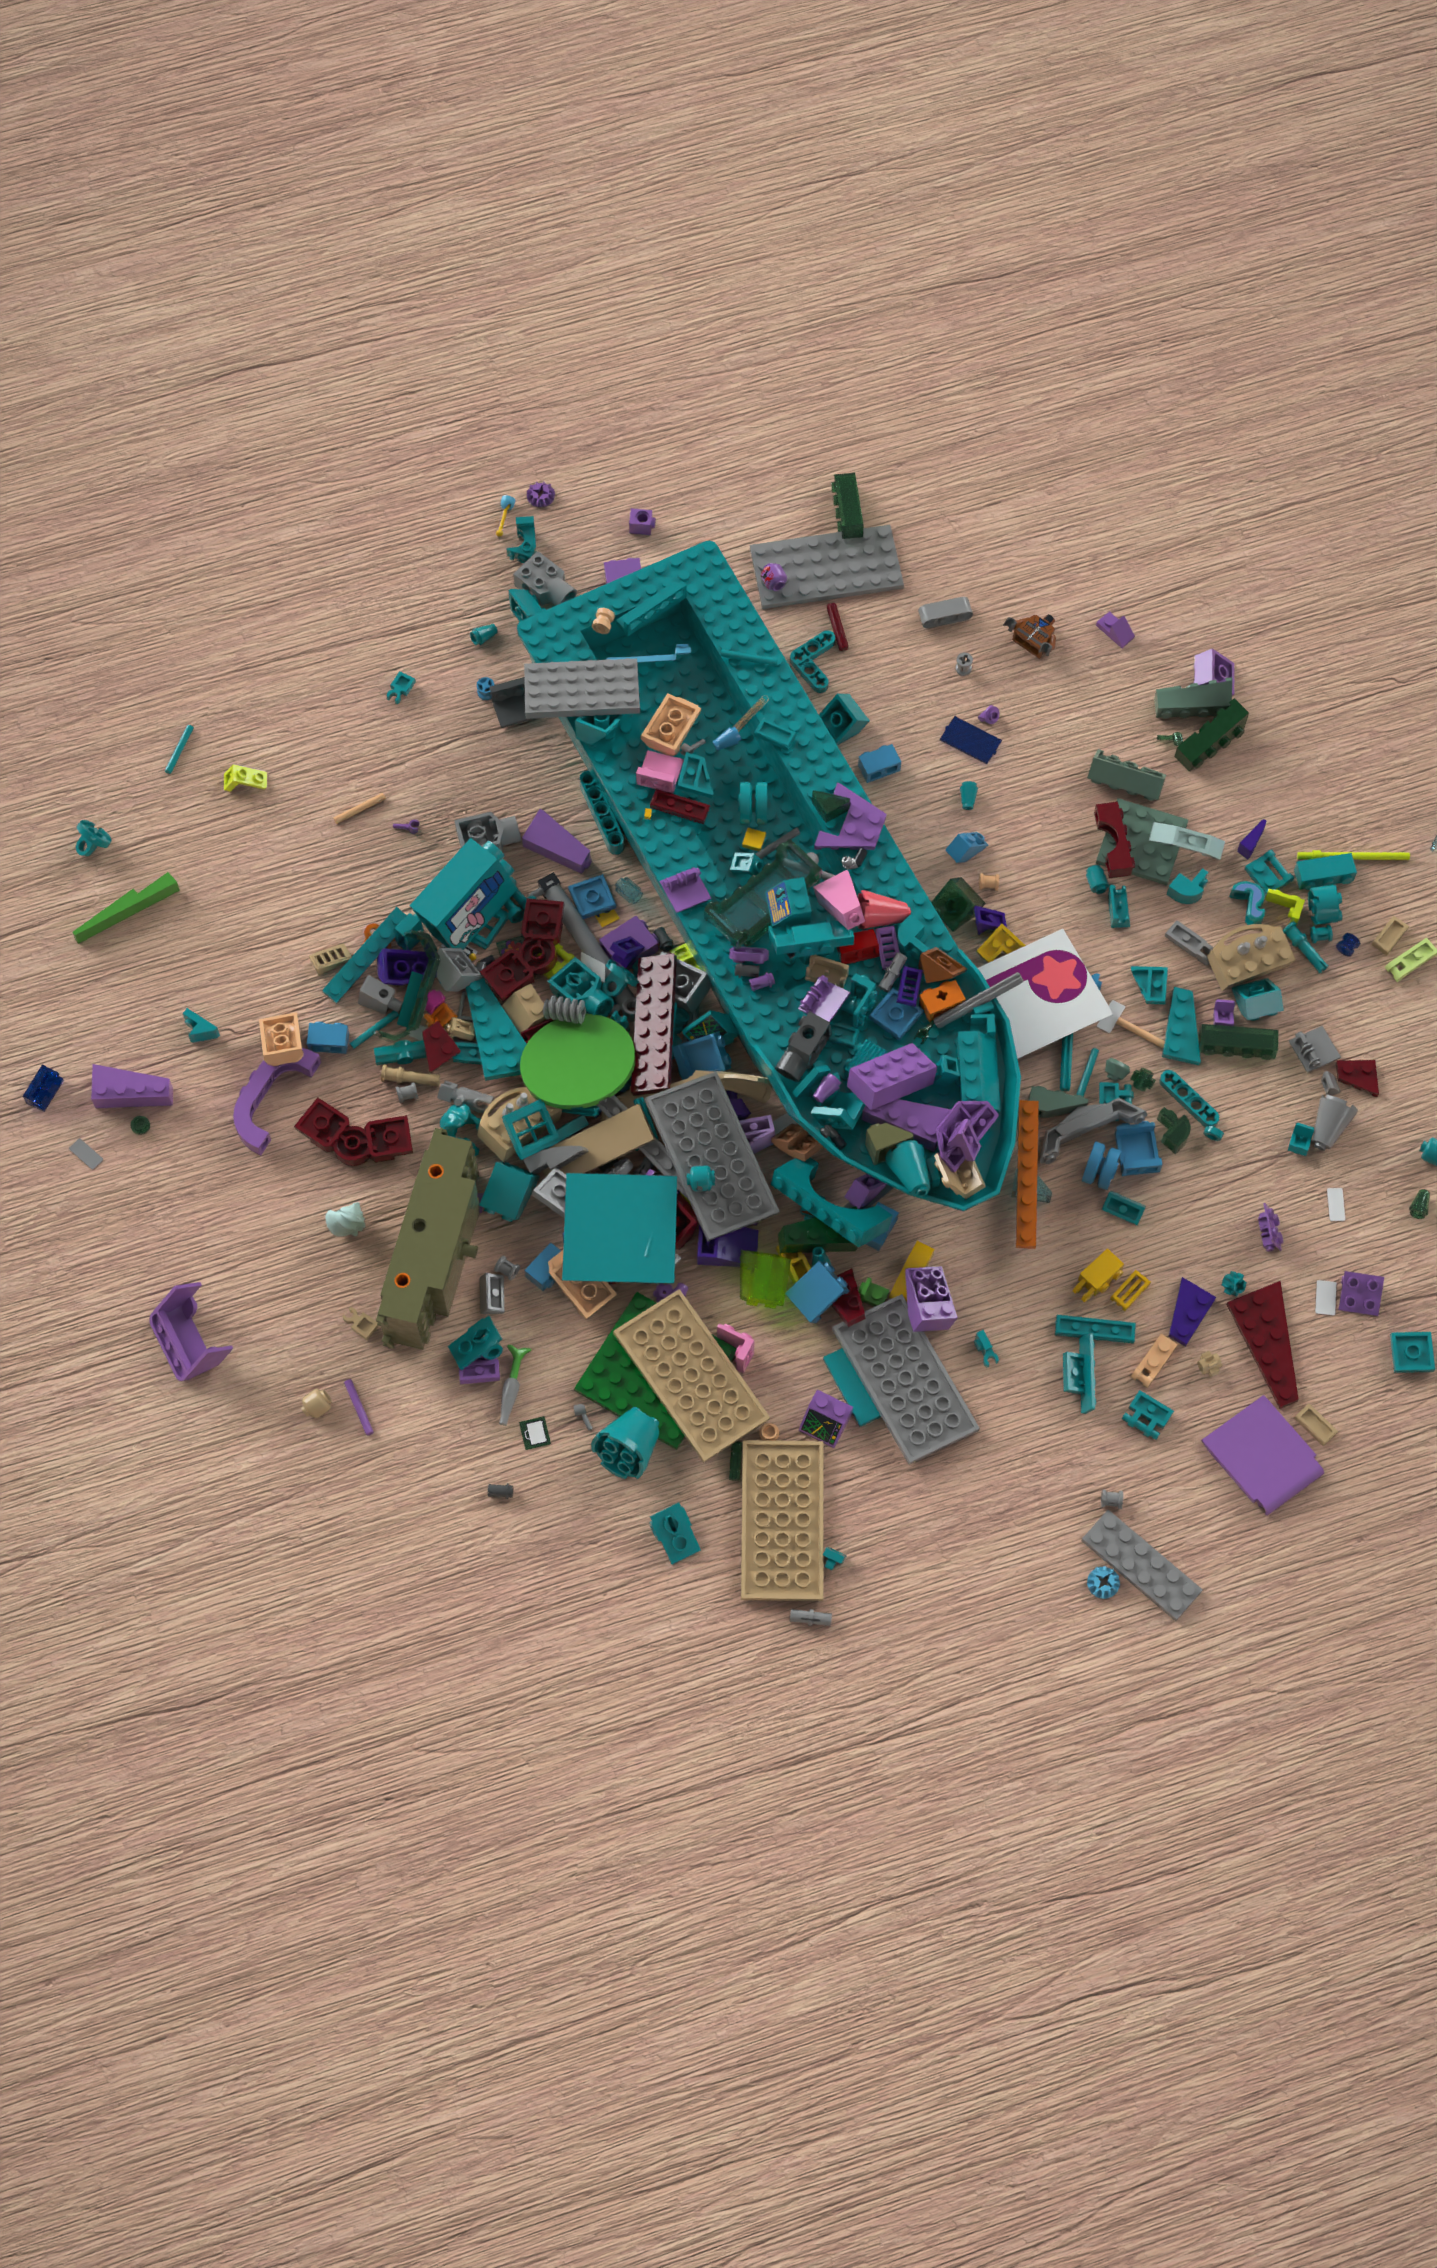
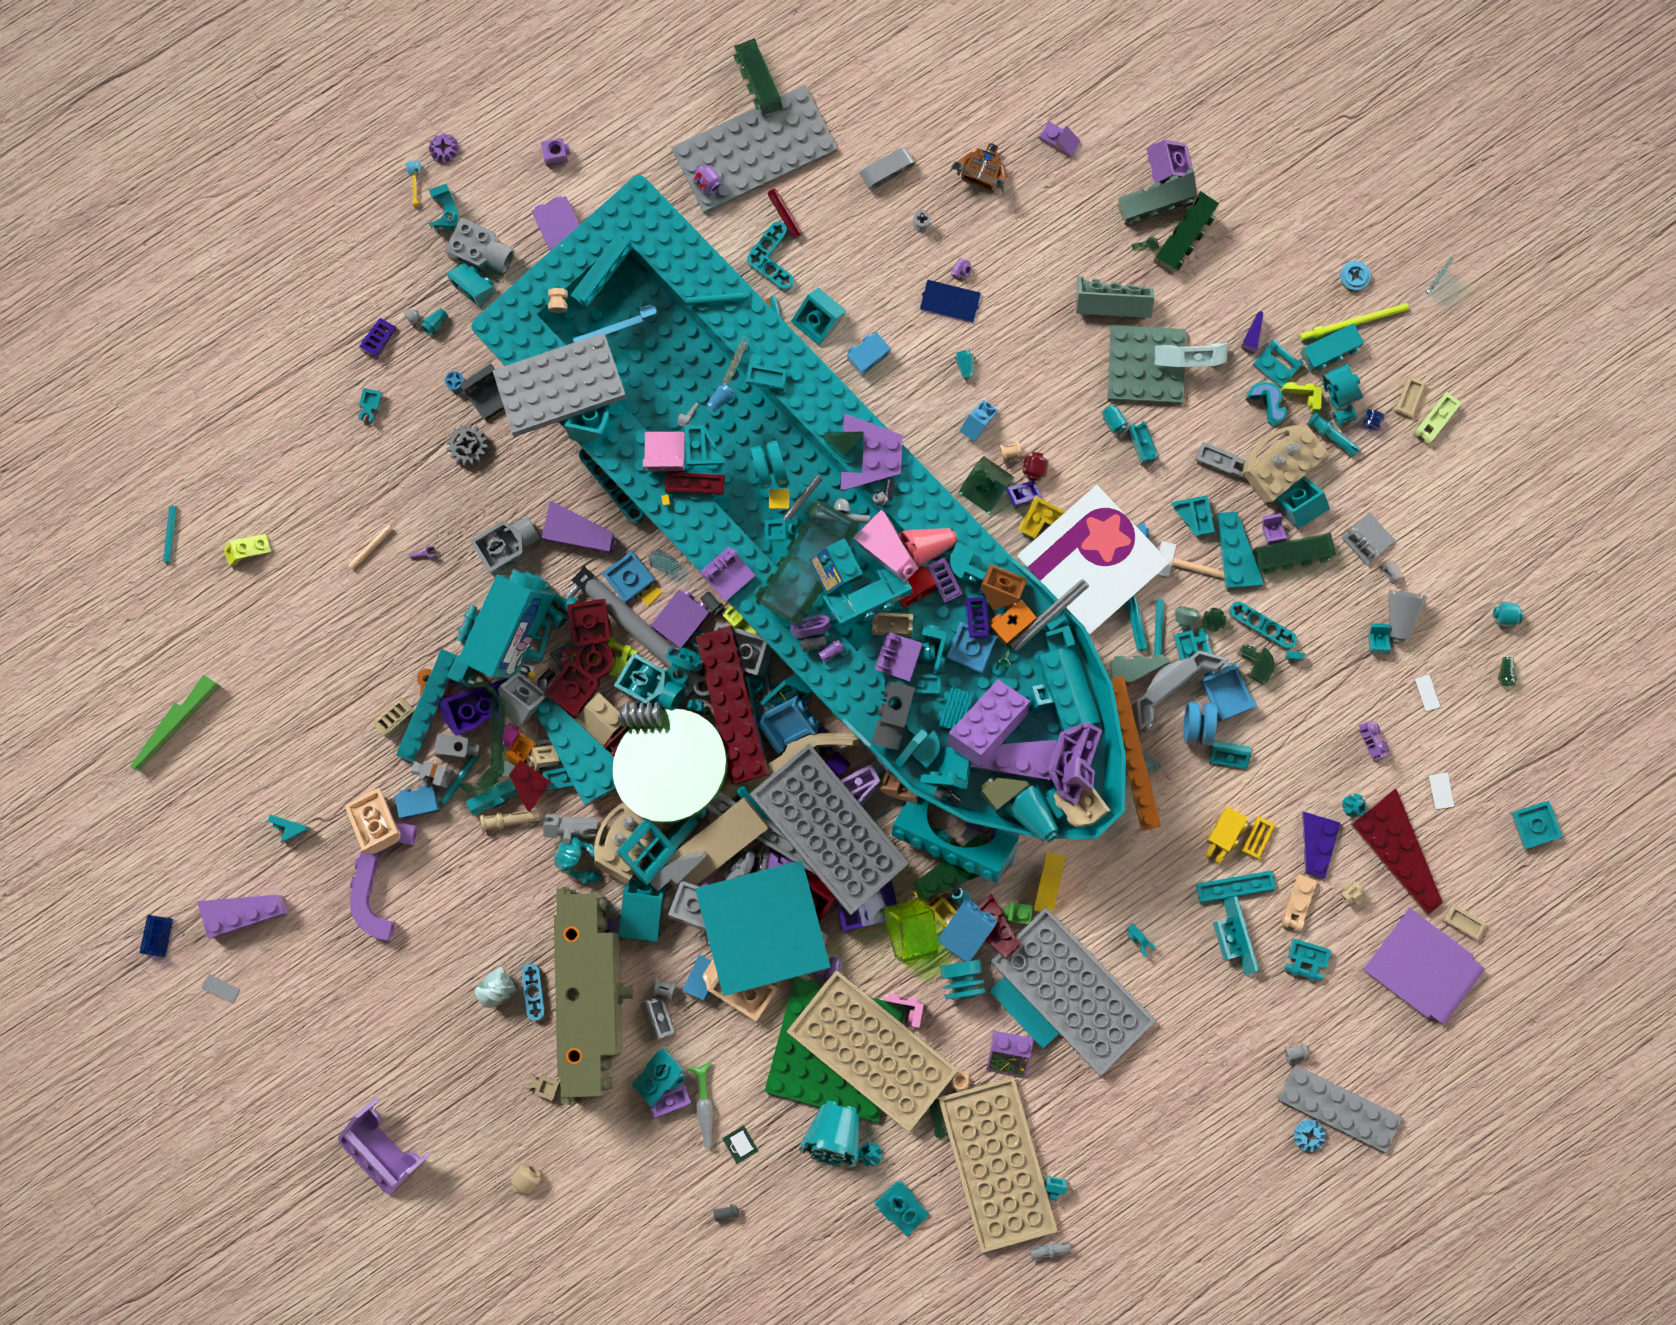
camera: 15 degrees left, 15 degrees up
(92, 836) = (116, 656): teal tile -> none
(140, 1125) = (263, 945): clear green plate -> none
(332, 1132) = (455, 900): dark red plate -> none
(352, 1012) = (429, 771): none -> light grey hips
(358, 1407) = (566, 1169): medium lavender bar -> none
(384, 1245) = (529, 1007): none -> medium azure beam
(407, 1092) = (512, 837): light grey bush -> none
(409, 999) = (484, 740): teal sticker -> none
(426, 642) = (364, 346): none -> dark purple slope
(465, 624) = (412, 316): none -> light grey hinge
(470, 744) = (460, 445): none -> light grey gear
(580, 1410) = (777, 1111): light grey hand -> none
(595, 965) = (653, 657): white sticker -> none
(626, 950) = (682, 631): dark purple slope -> none
(660, 1474) = (870, 1154): none -> teal gear
(670, 725) = (660, 397): light nougat slope -> none
(701, 1178) = (827, 860): teal head -> none
(799, 1334) = (962, 979): none -> teal wheel
(827, 1087) = (929, 753): medium lavender cone -> none
(892, 972) = (956, 606): light grey pin -> none
(929, 1299) = (1073, 907): medium lavender slope -> none
(1008, 900) = (1035, 466): none -> dark red head
(1109, 819) = (1111, 353): dark red arch -> none
(1188, 891) = (1204, 407): teal brick -> none
(1358, 1074) = (1416, 553): dark red wing -> none
(1361, 1293) = (1474, 779): medium lavender hinge -> none
(1365, 808) = (1363, 275): none -> medium azure gear

